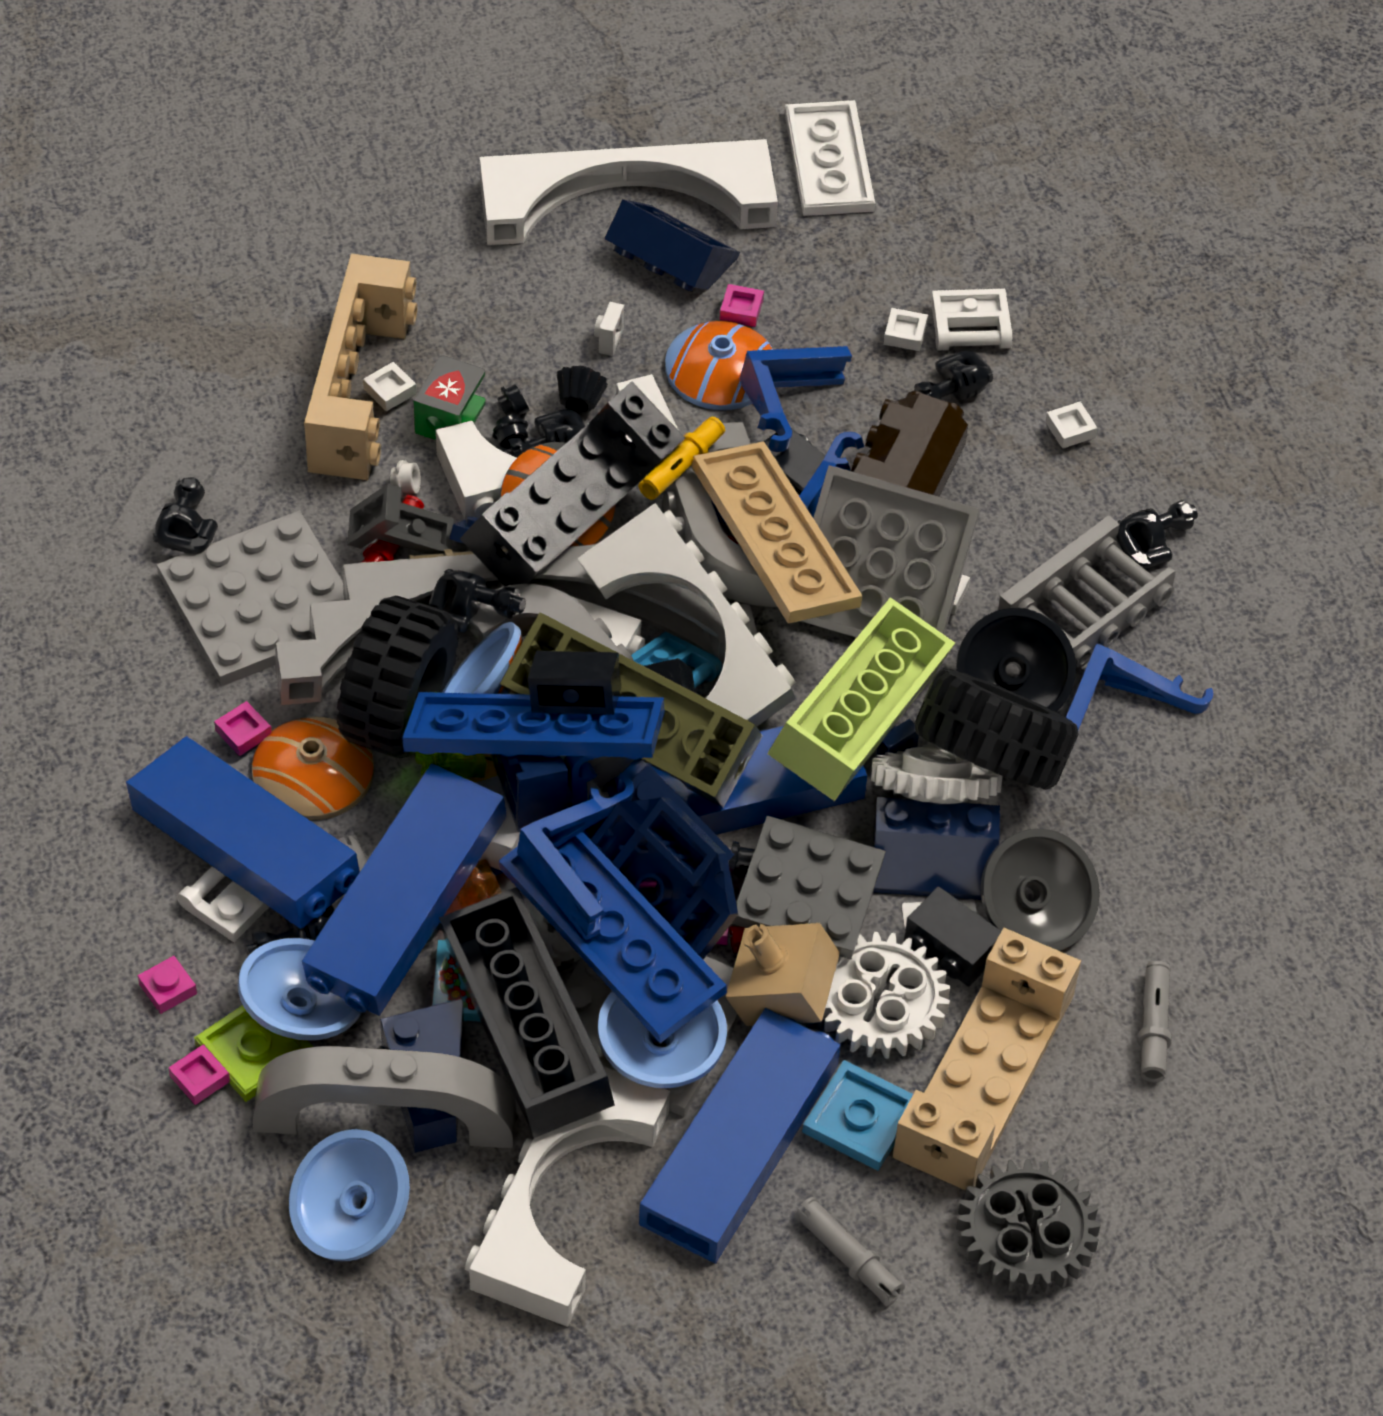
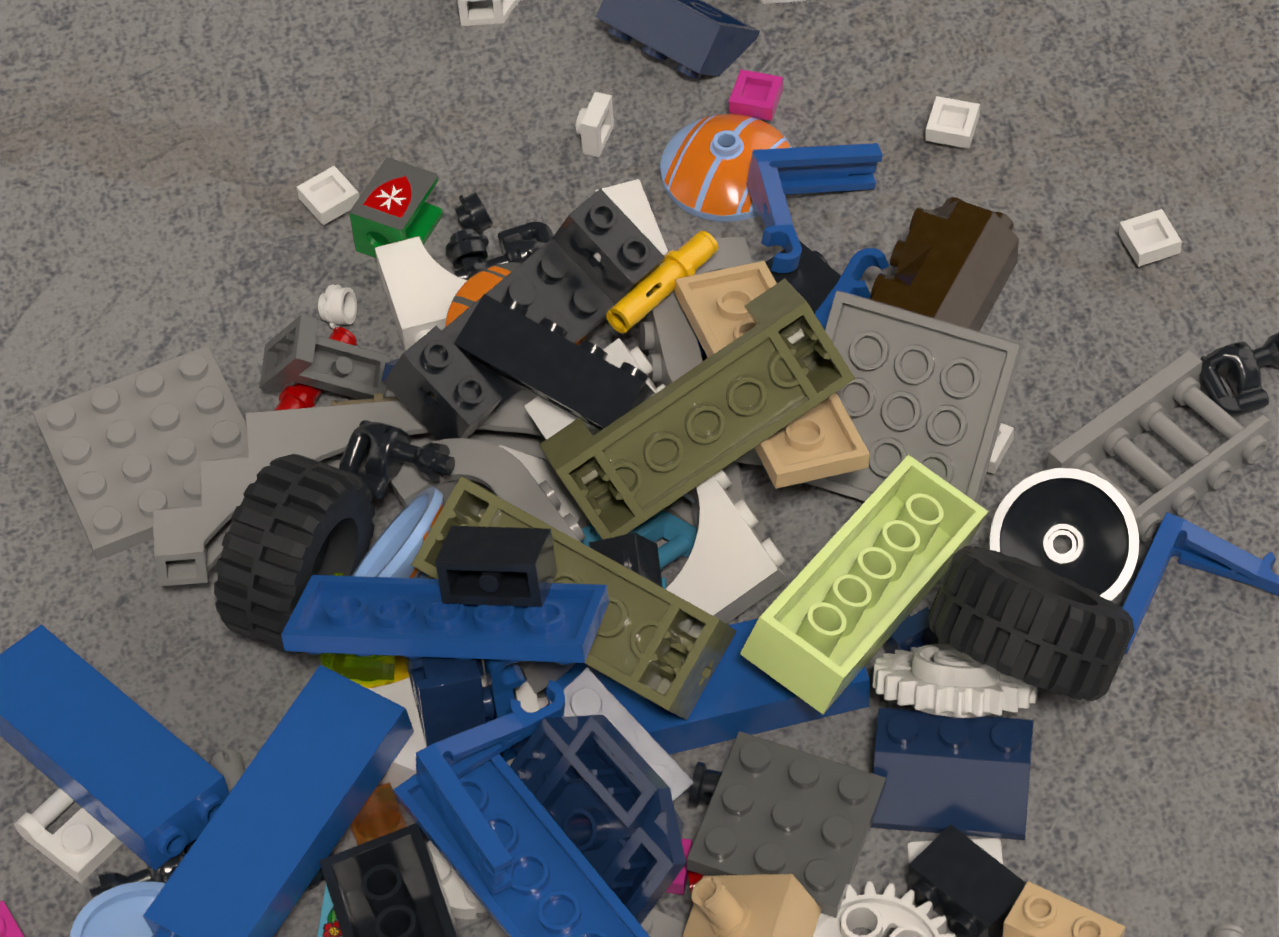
camera: 10 degrees right, 0 degrees up
(181, 524) = (66, 366): black piece -> none
(242, 728) = (114, 614): dark pink plate -> none
(314, 783) = (197, 683): orange dish -> none
(340, 429) = (254, 244): tan plate -> none
(580, 387) = (553, 195): black piece -> none
(605, 526) = (551, 365): none -> black brick
(727, 566) = (701, 417): none -> olive plate
(963, 375) = (1020, 176): black piece -> none
(971, 309) = (1033, 98): white plate -> none
(1061, 882) = (1110, 822): dark grey dish -> none

